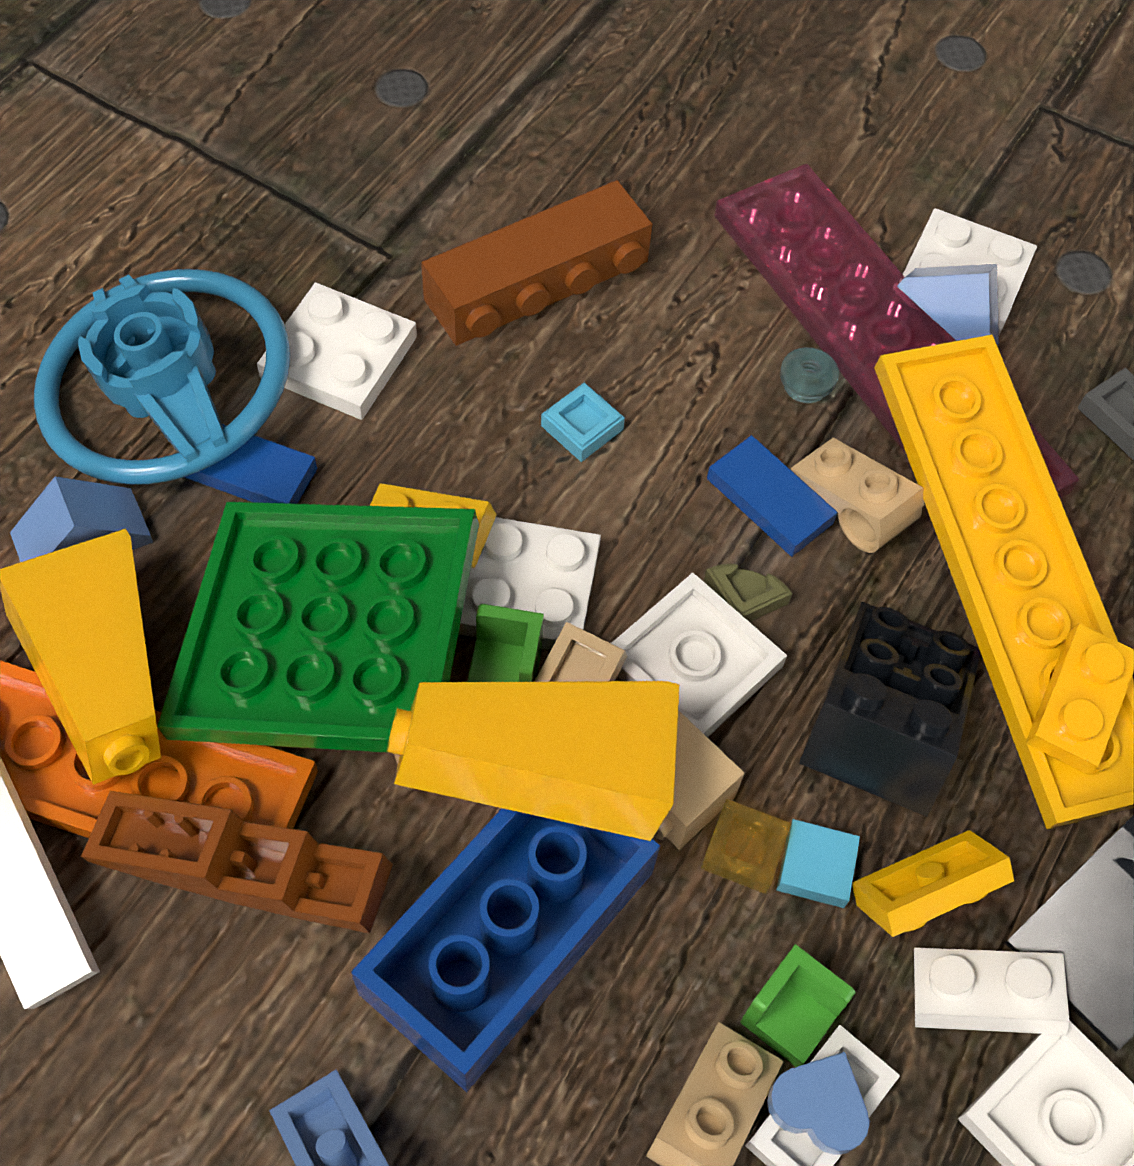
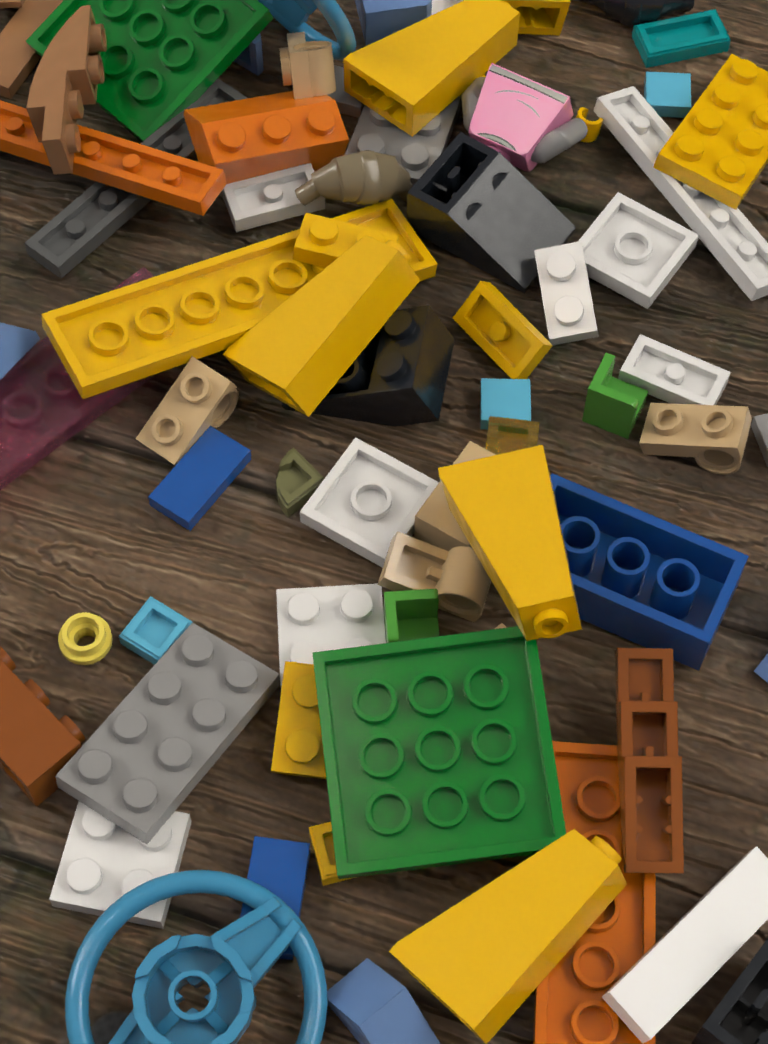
camera: 100 degrees left, 0 degrees up
(455, 401) = (168, 732): none -> light grey plate
(595, 343) = (85, 625): none -> light yellow plate
(808, 386) = (72, 477): clear light blue plate -> none
(823, 1103) = (677, 368): medium blue tile -> none
(947, 635) = (325, 324): none -> yellow slope

